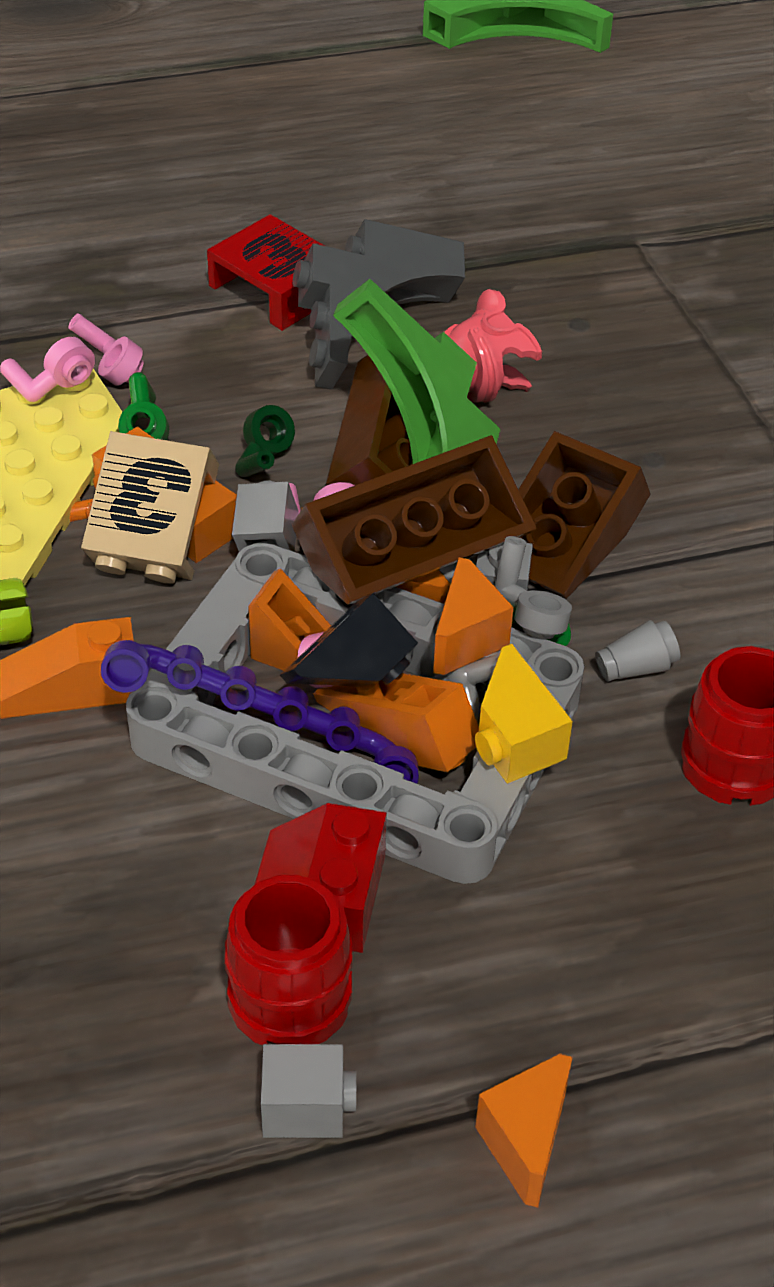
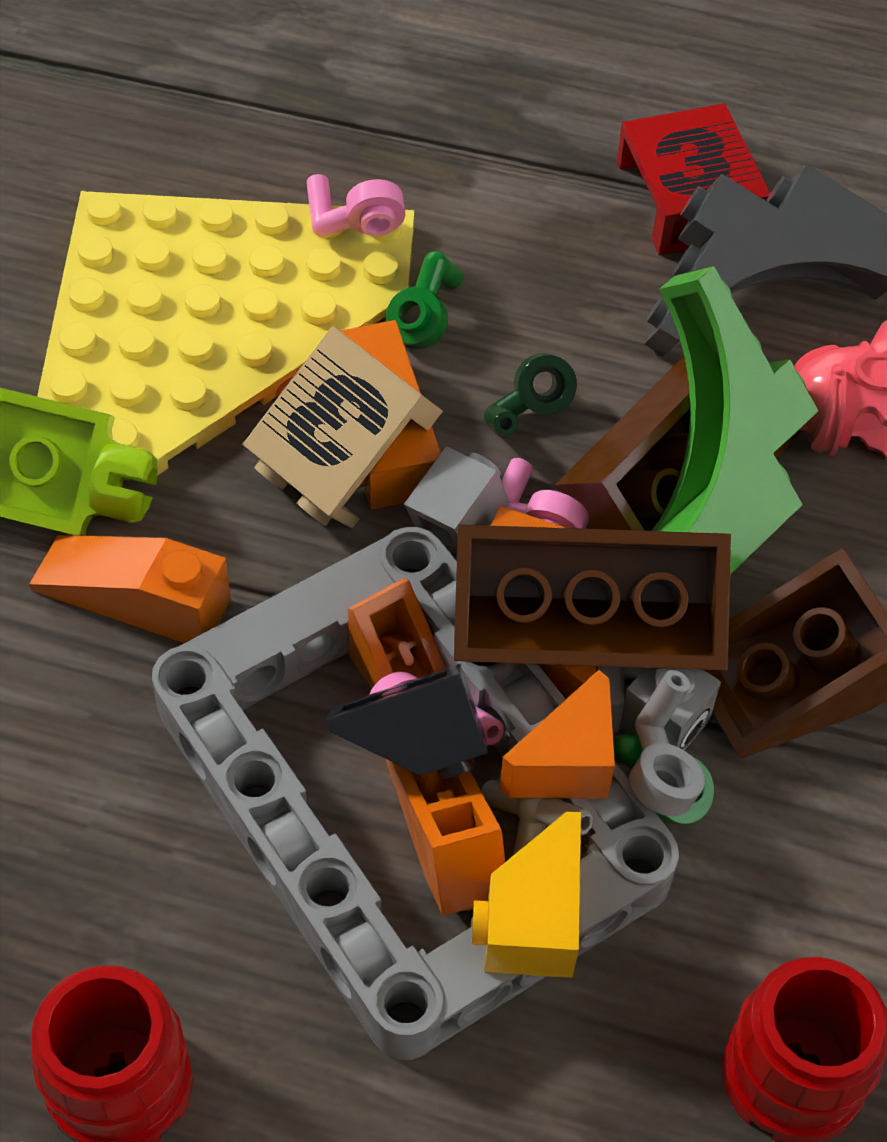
camera: 30 degrees right, 10 degrees up
(120, 356) = (450, 221): bright pink plate -> none
(129, 662) = (154, 628): dark purple bar -> none
(340, 850) = (234, 969): red slope -> none
(640, 652) = (768, 876): light grey cone -> none

